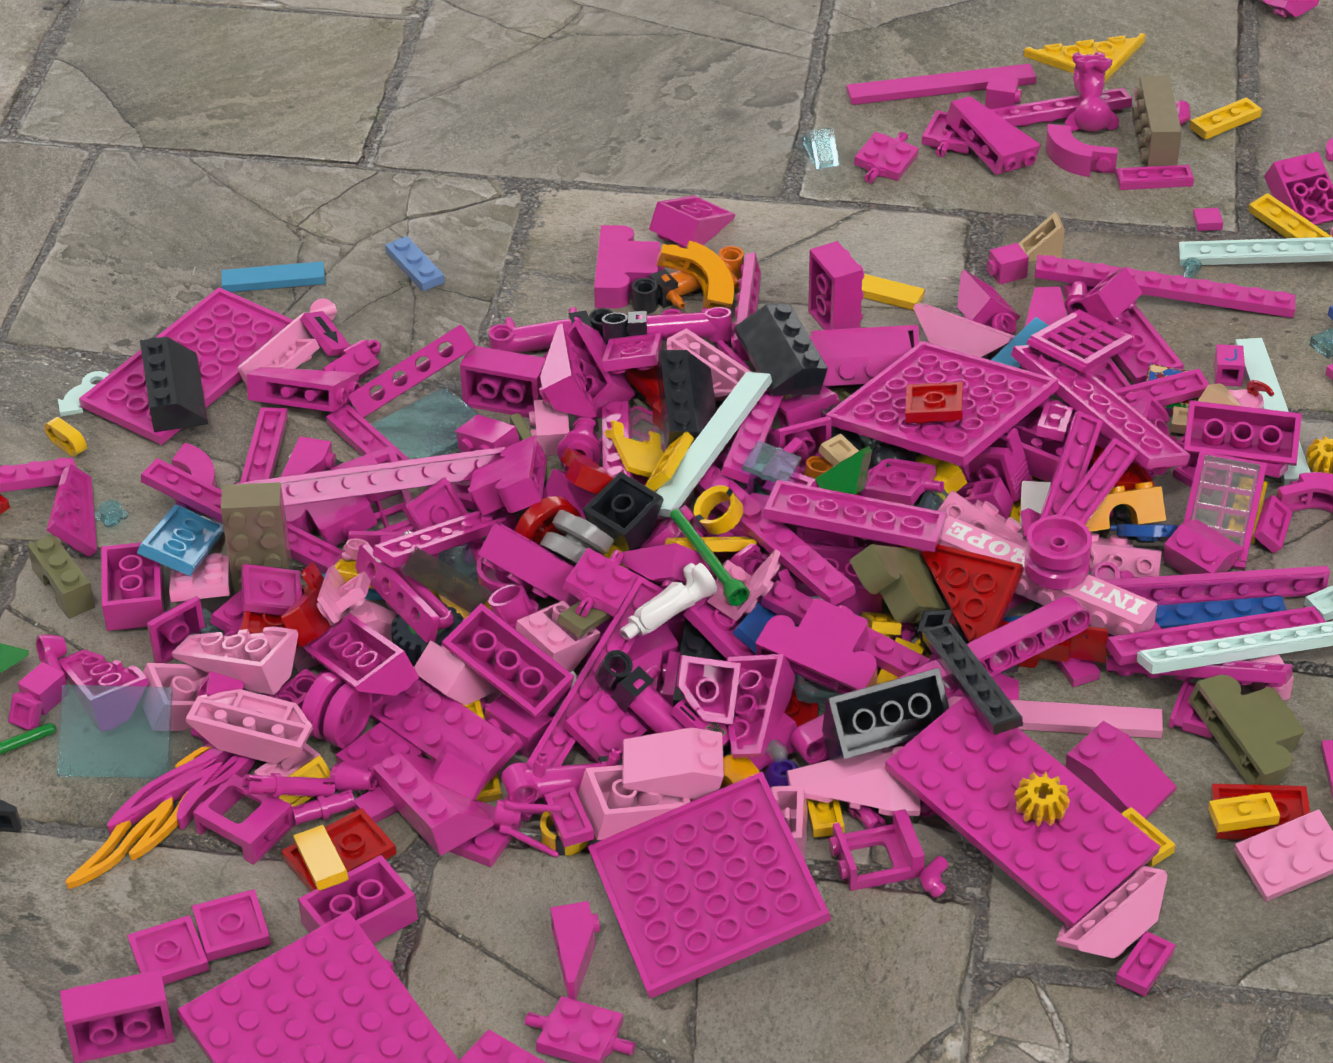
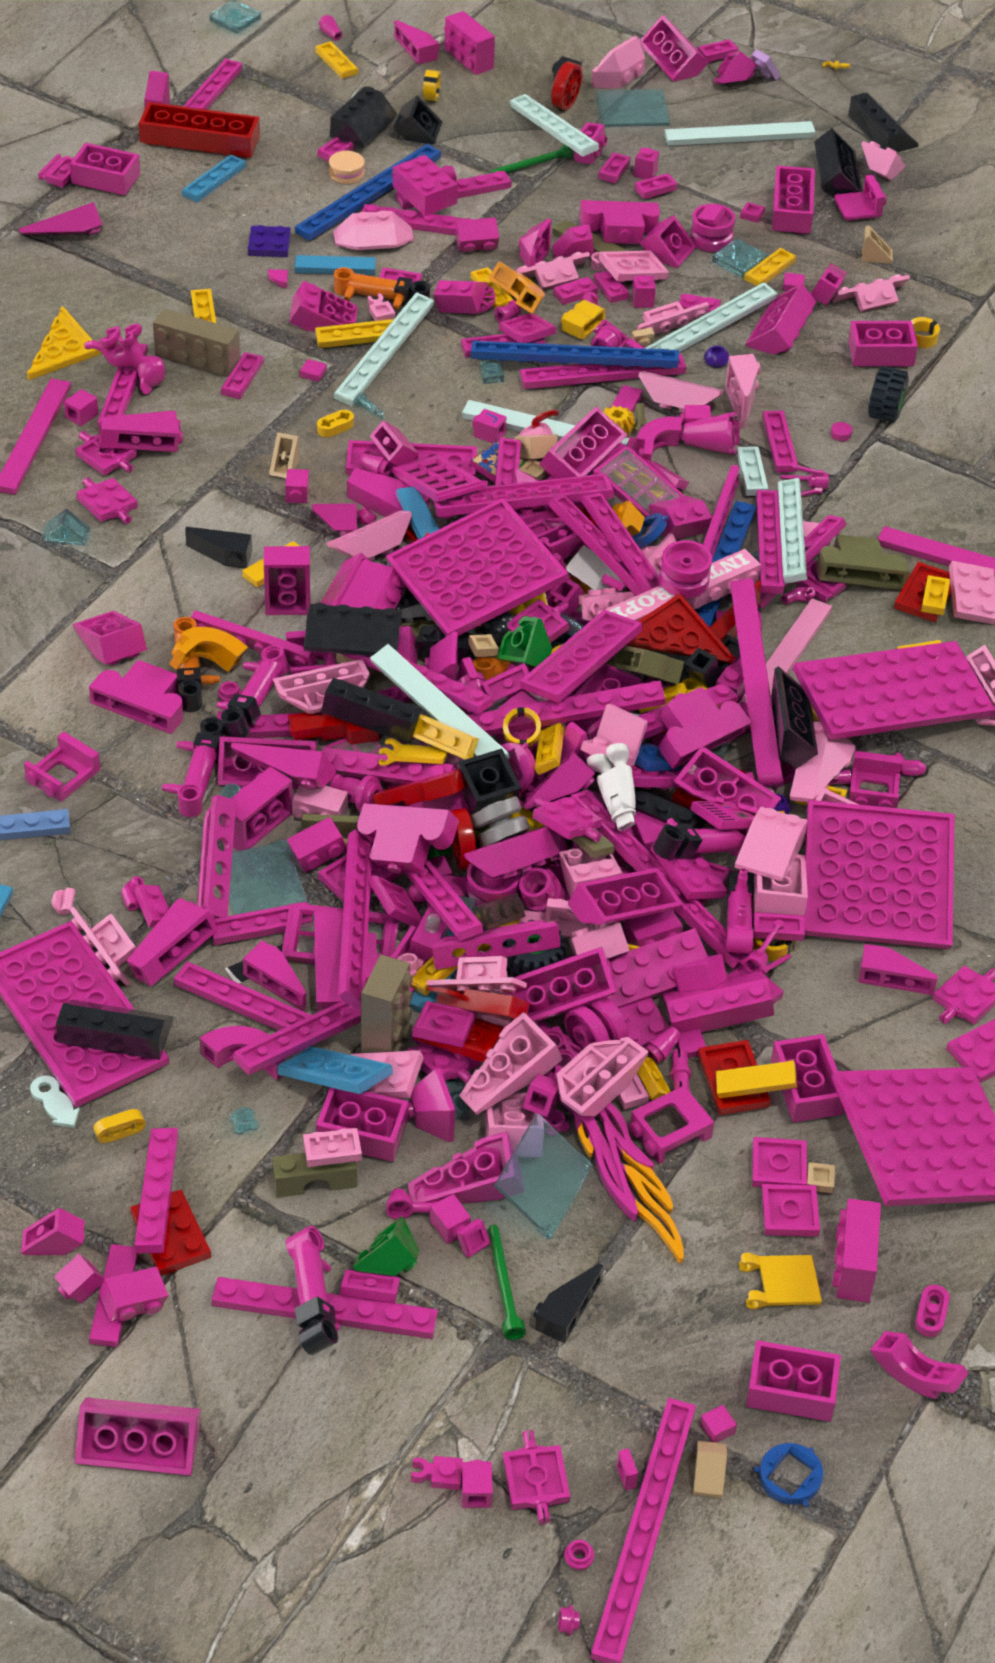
camera: 70 degrees left, 5 degrees up
(68, 971) = (784, 1280): none -> yellow flag
(72, 565) = (332, 1147): none -> bright pink bracket
(73, 511) = (240, 1142): dark pink wing -> none
(224, 964) = (822, 1176): none -> tan plate
(276, 785) = (667, 1081): dark pink pin -> none
(324, 332) = (101, 906): dark pink tile -> none
(514, 263) = (72, 755): none -> dark pink window
(632, 352) = (284, 718): dark pink plate -> none
(709, 687) = (714, 792): dark pink slope -> none
(733, 590) = (631, 741): green piece -> none
(771, 463) = (489, 680): clear light blue piece -> none
(876, 250) = (224, 547): none -> black slope
(934, 402) = (492, 566): red plate -> none
(972, 679) = (787, 657): black tile -> none
(1041, 799) = (910, 670): yellow gear -> none
(1054, 422) = (539, 521): dark pink plate -> none
(1076, 156) = (187, 402): dark pink arch -> none
(1119, 771) = (856, 636): dark pink slope -> none
(1135, 258) = (335, 423): none -> yellow beam
(1162, 697) = (798, 594): none -> dark pink arm
(1171, 286) = (391, 412): dark pink plate -> none

